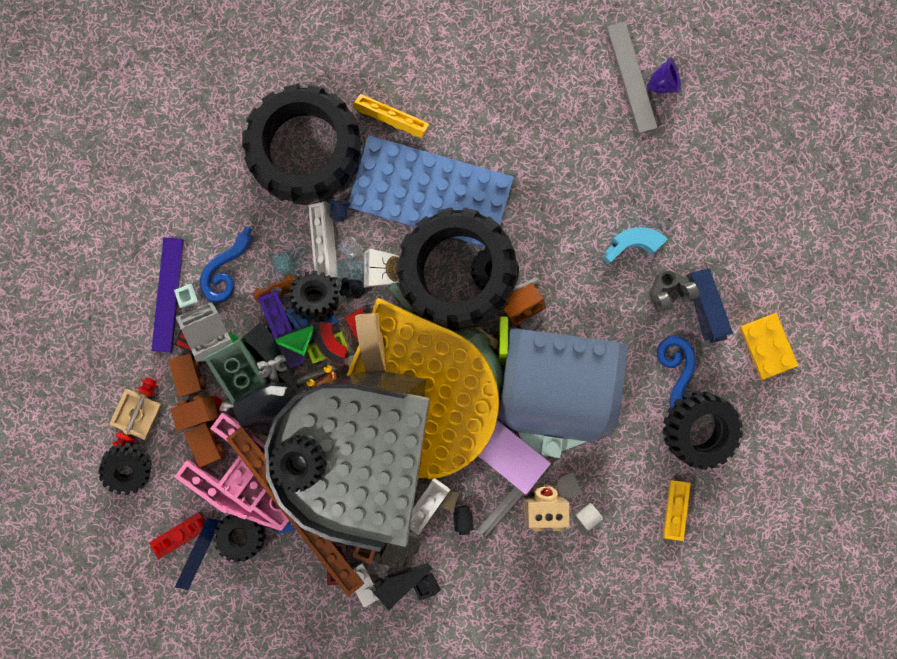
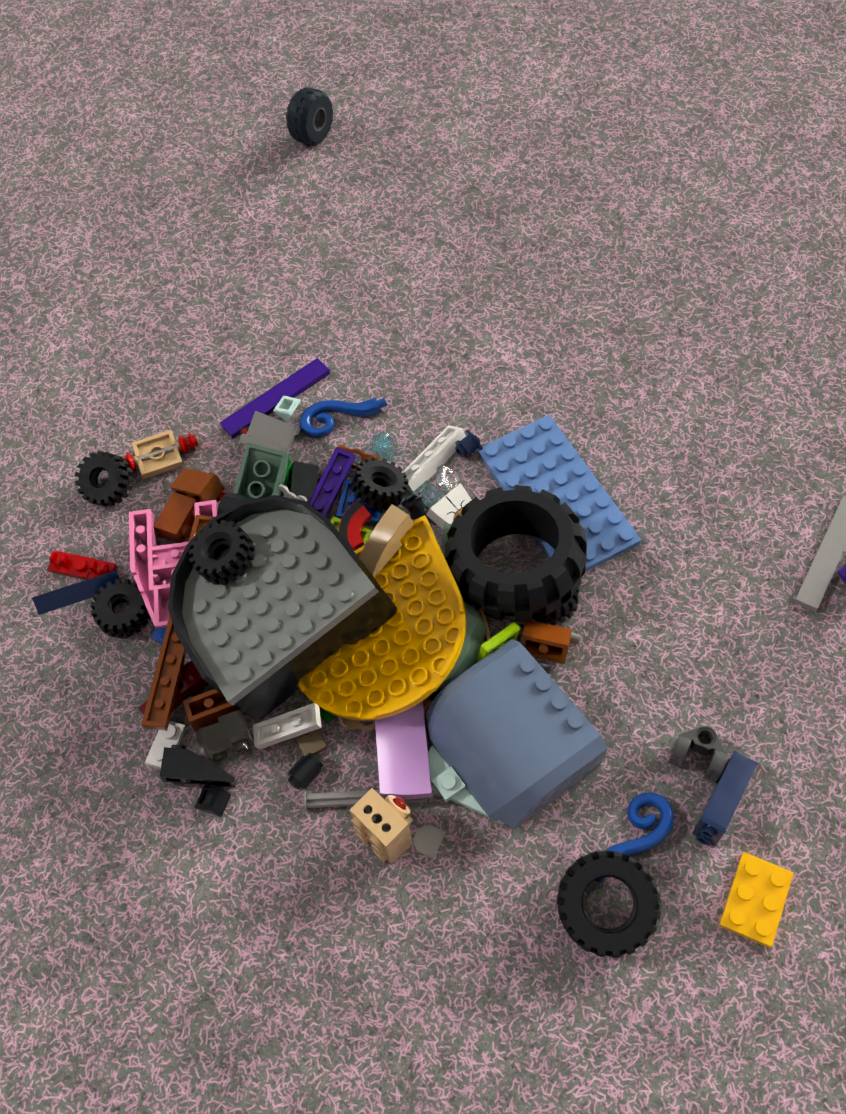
camera: 55 degrees right, 25 degrees down
(187, 375) = (223, 458): dark orange brick -> none
(283, 107) = (488, 339): black tyre -> none
(296, 340) = (331, 500): green slope -> none
(390, 116) = (582, 416): yellow plate -> none
(589, 516) = (418, 883): white piece -> none
(639, 237) = (707, 678): medium azure arch -> none
(676, 510) = (508, 965): yellow plate -> none

